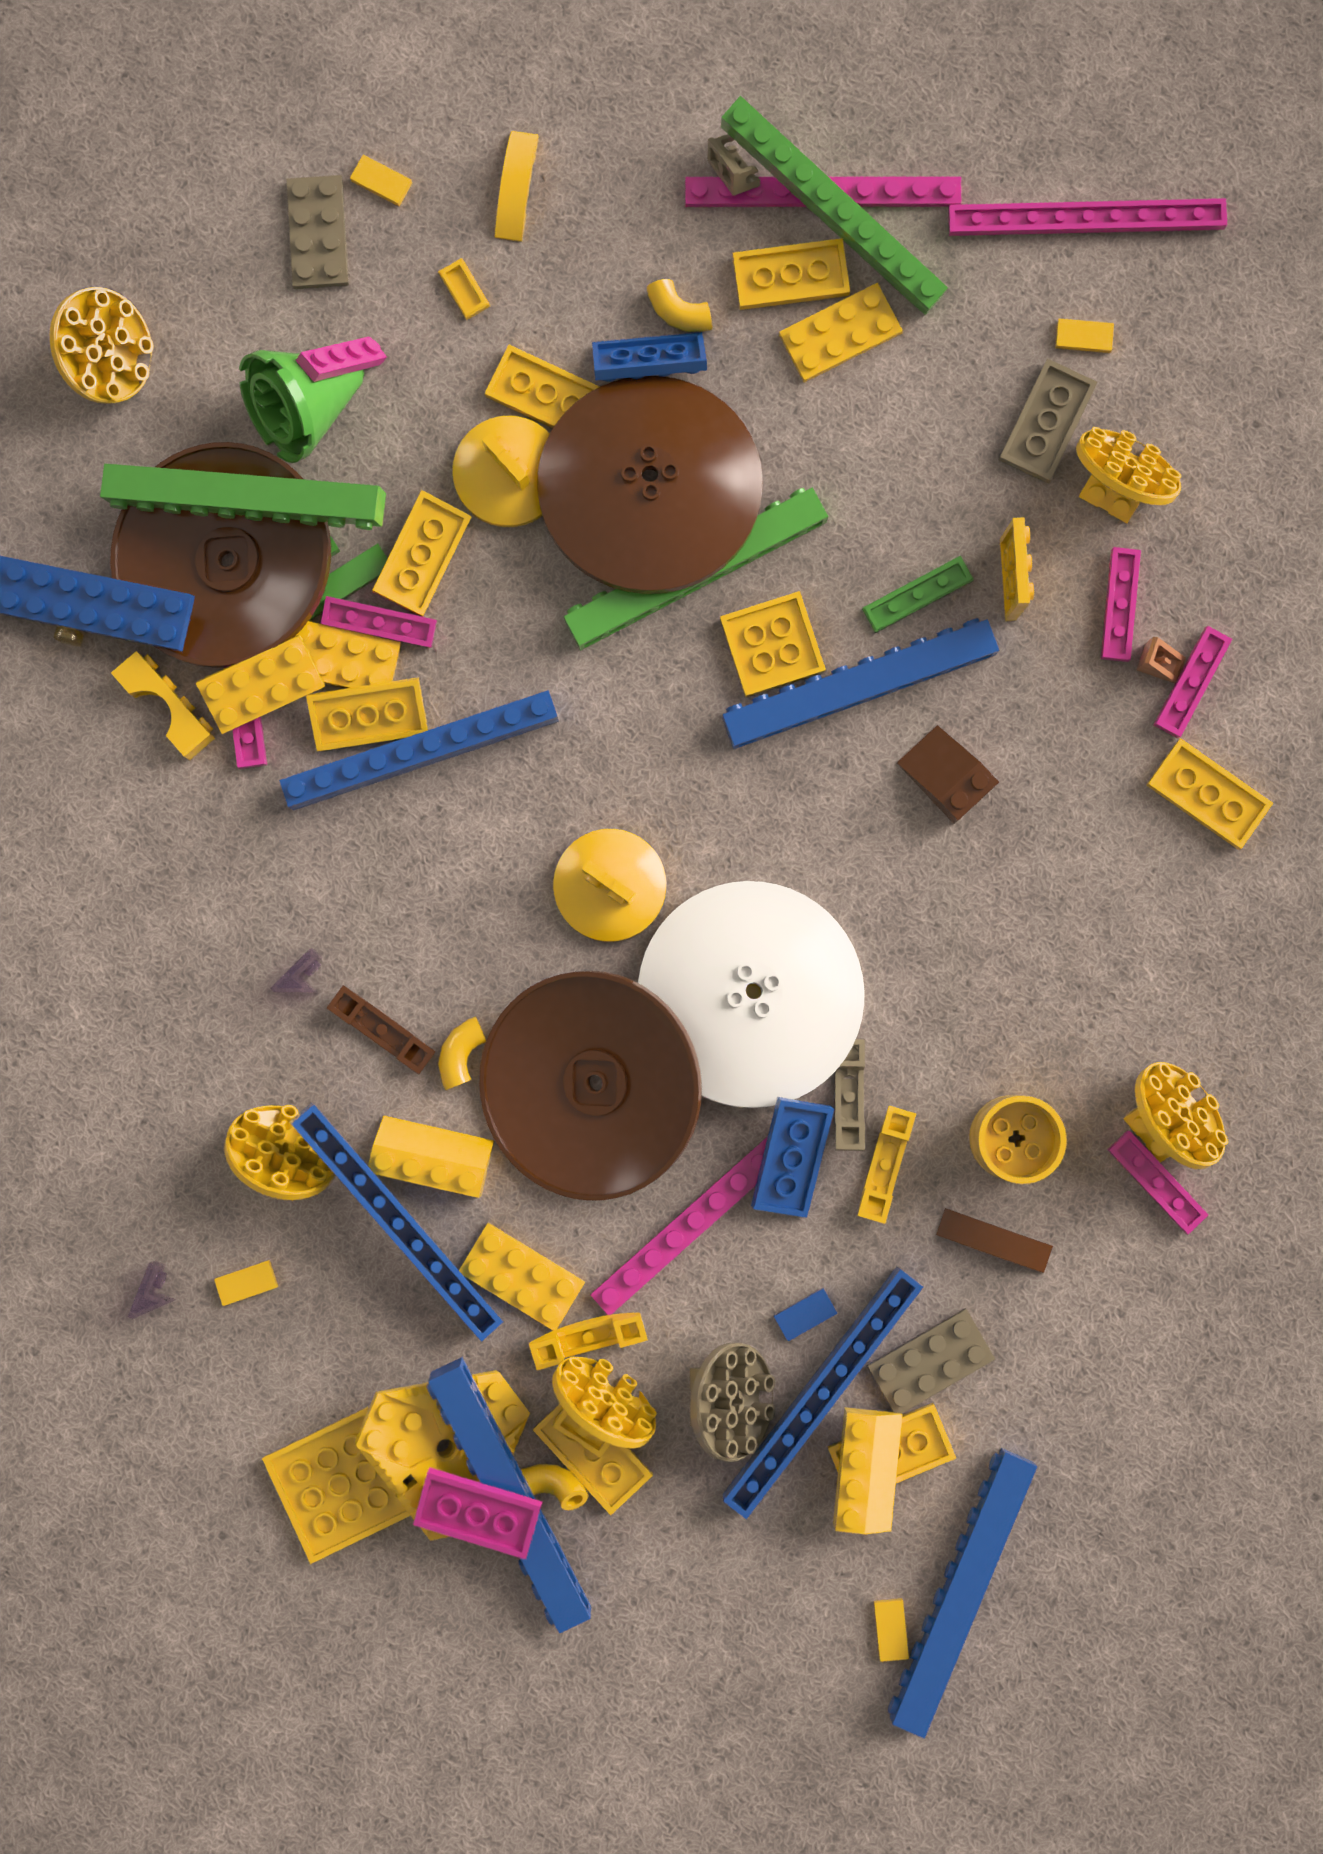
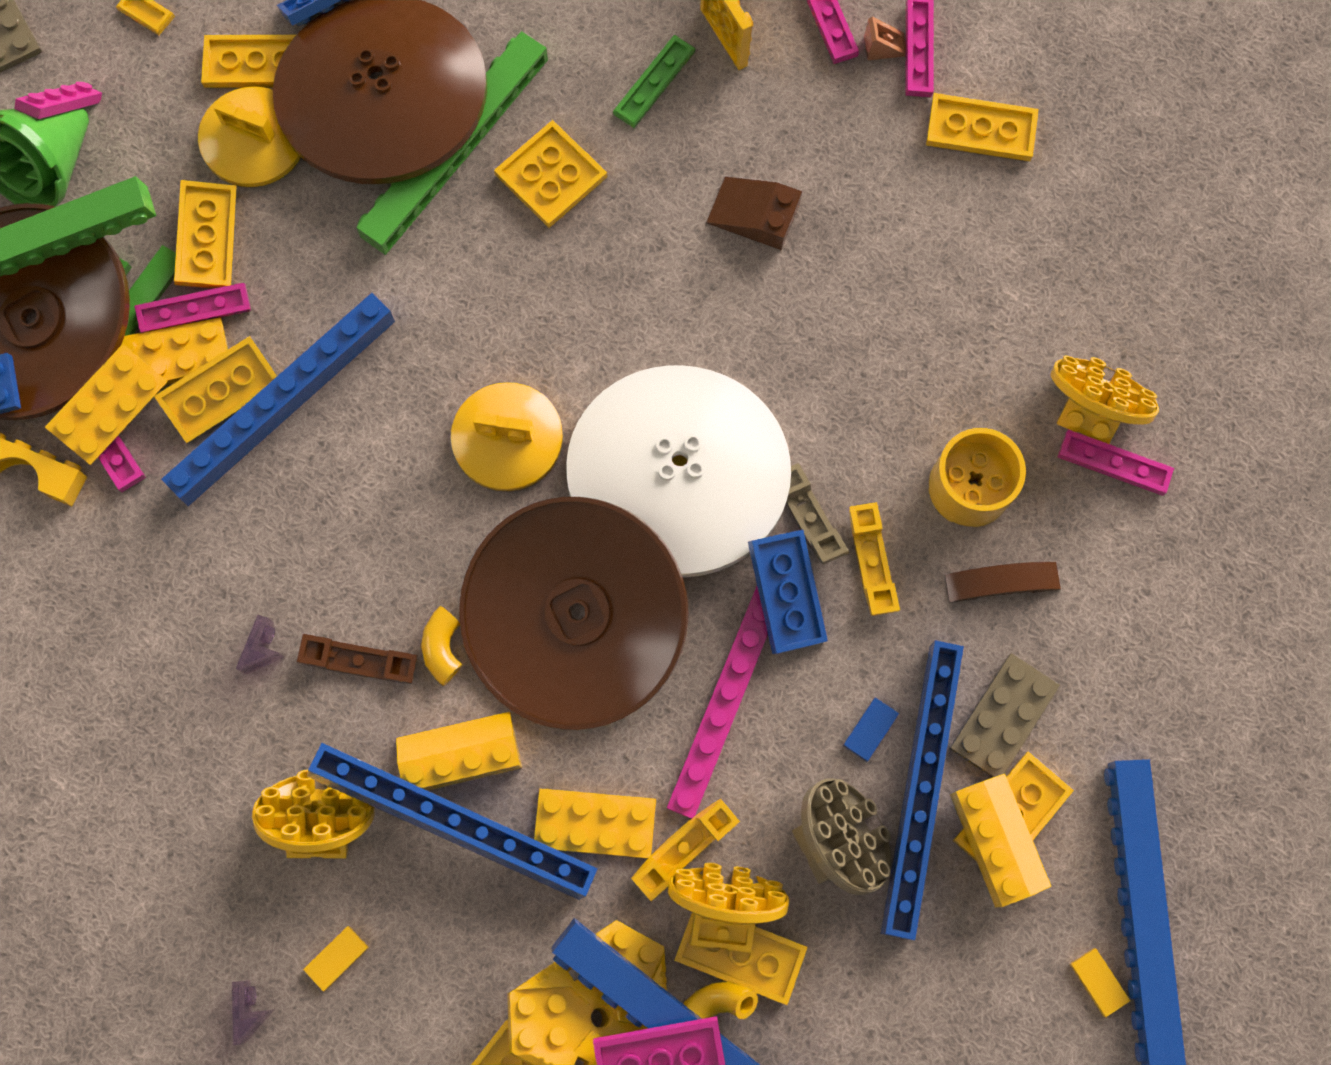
camera: 30 degrees left, 10 degrees down
(860, 684) = (640, 172): blue brick -> none

